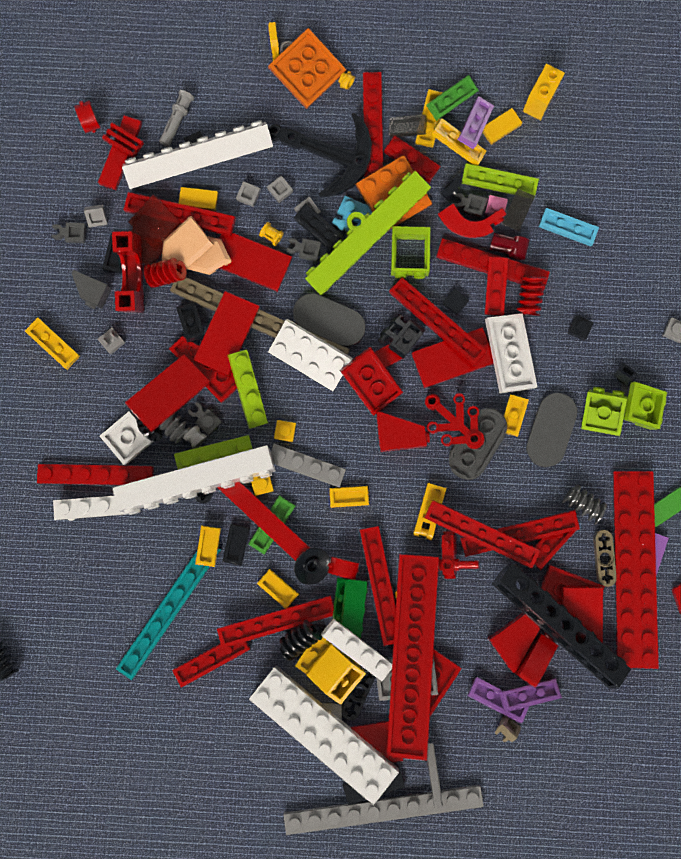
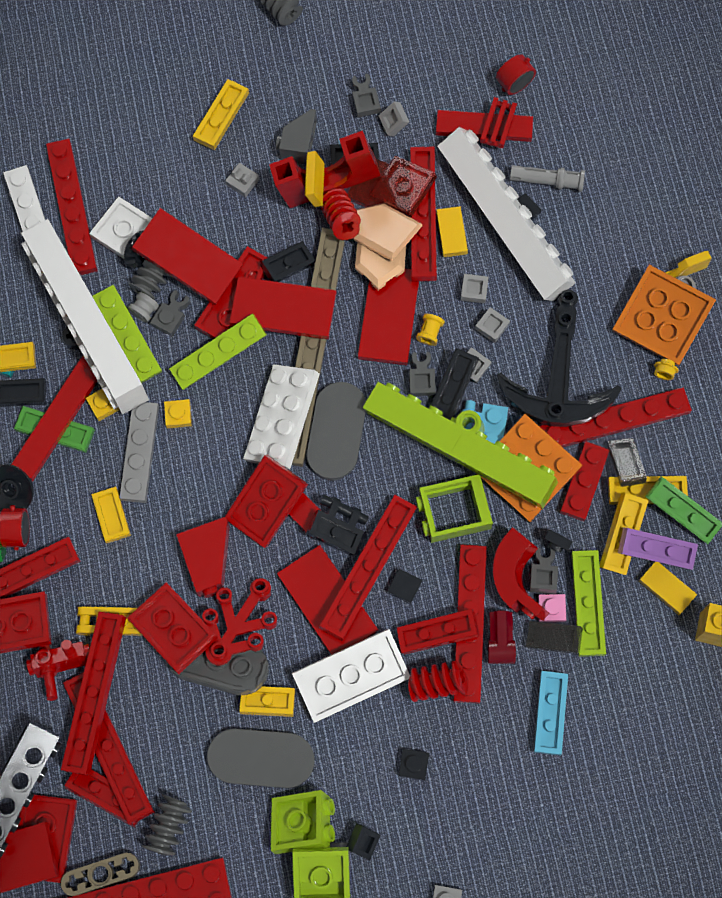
camera: 75 degrees right, 10 degrees down
(132, 283) = (314, 179): none -> yellow tile
(449, 468) = (172, 628): none -> red tile

